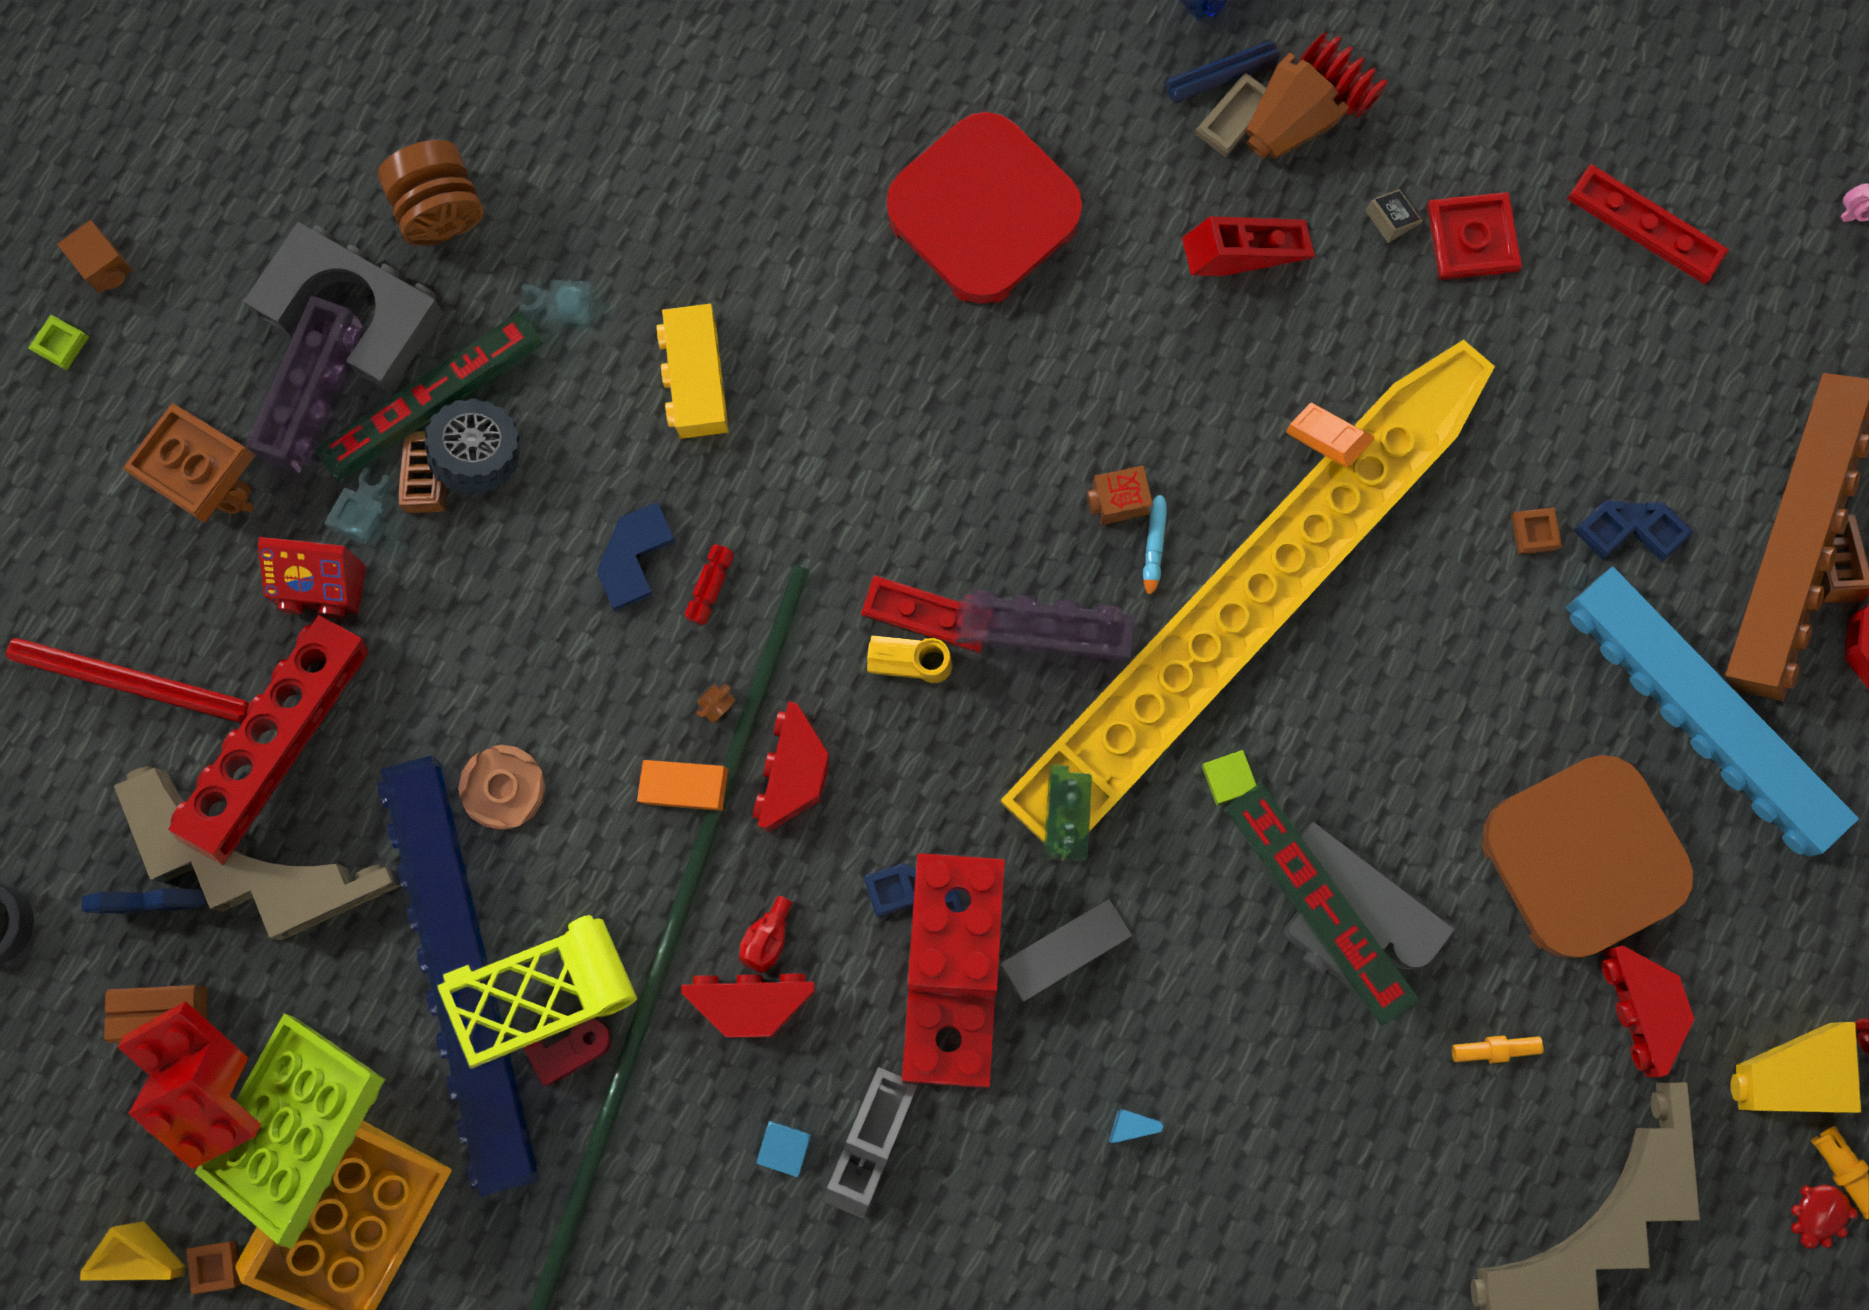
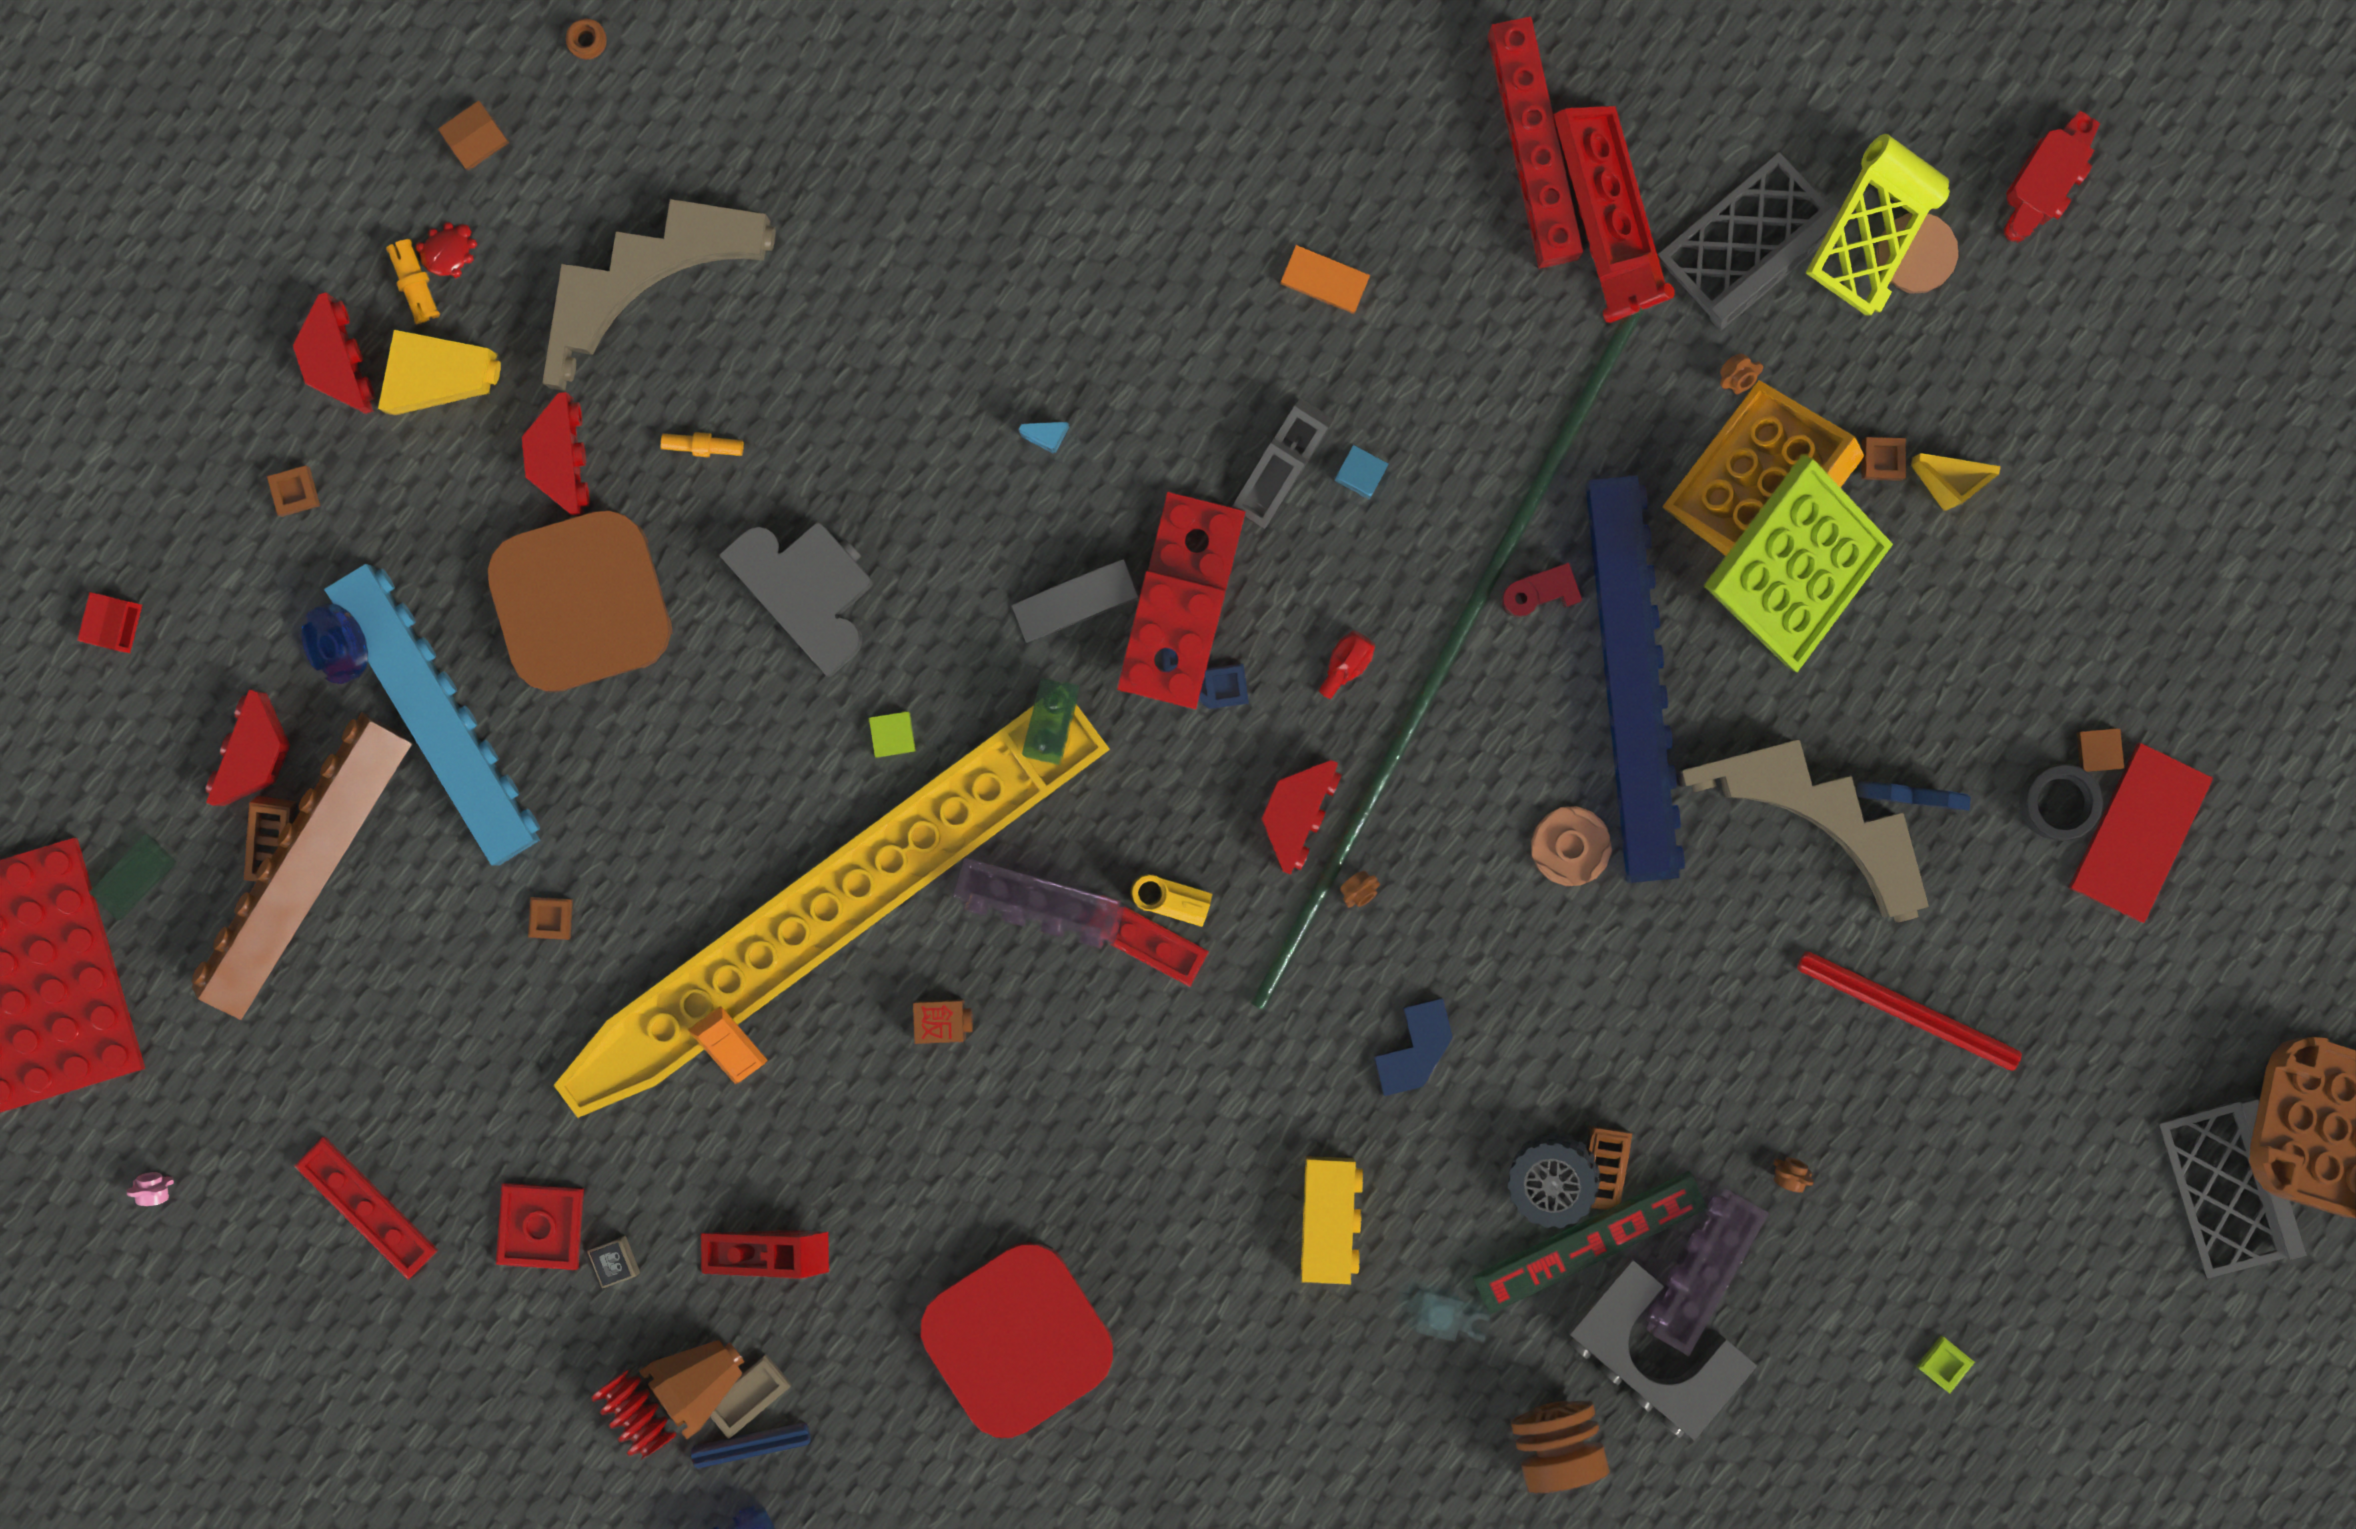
camera: 170 degrees left, 10 degrees up
(95, 257) = (1898, 1442): dark orange brick -> none
(133, 1007) = (1912, 689): dark orange brick -> none
(189, 462) = (1828, 1212): dark orange tile -> none
(189, 1085) = (1885, 618): red bracket -> none
(270, 762) = (1834, 838): red brick -> none
(311, 577) = (1723, 1075): red slope -> none
(358, 512) = (1673, 1137): clear light blue plate -> none
(593, 970) = (1509, 659): neon yellow piece -> none
(682, 785) = (1402, 816): orange tile -> none
(709, 584) = (1347, 1006): red axle -> none
(749, 1005) = (1372, 602): red slope -> none
(1155, 543) = (915, 974): medium azure piece -> none
(1321, 904) = (836, 599): clear green tile -> none
(1649, 521) = (439, 906): dark blue tile -> none
(1831, 765) = (335, 643): none -> clear blue tile

